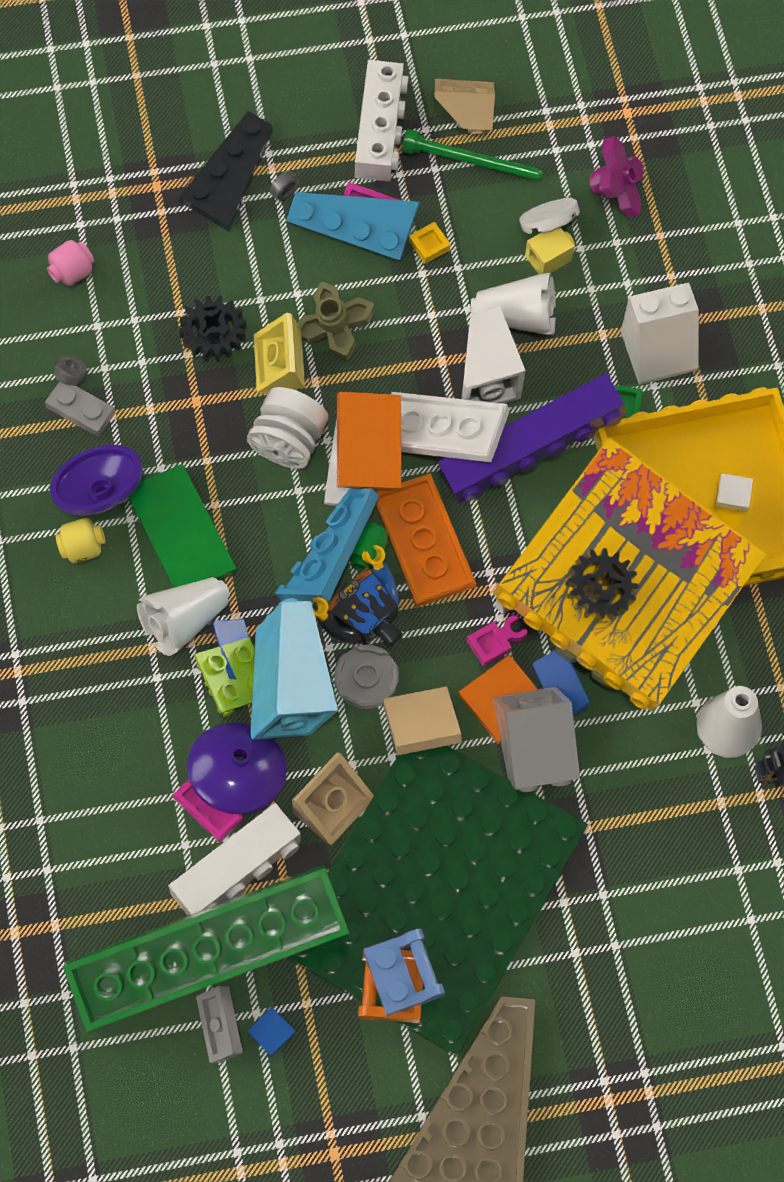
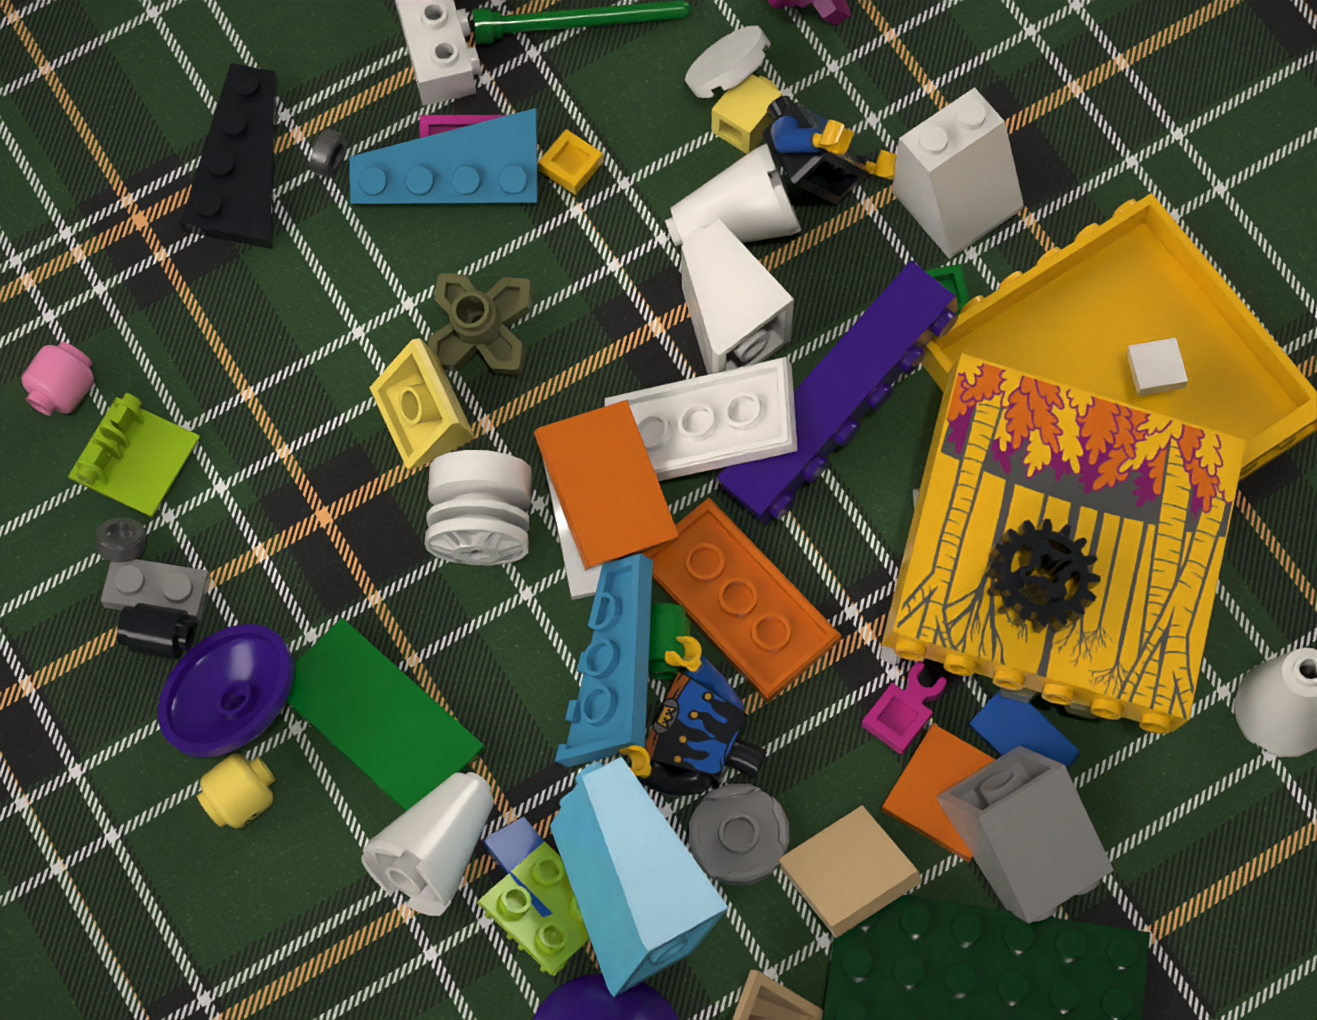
camera: 15 degrees left, 0 degrees up
(69, 430) = (155, 630): none -> black brick
(97, 325) = (134, 456): none -> lime hinge
(212, 328) = (294, 385): black gear -> none
(579, 290) = (818, 151): none -> torso

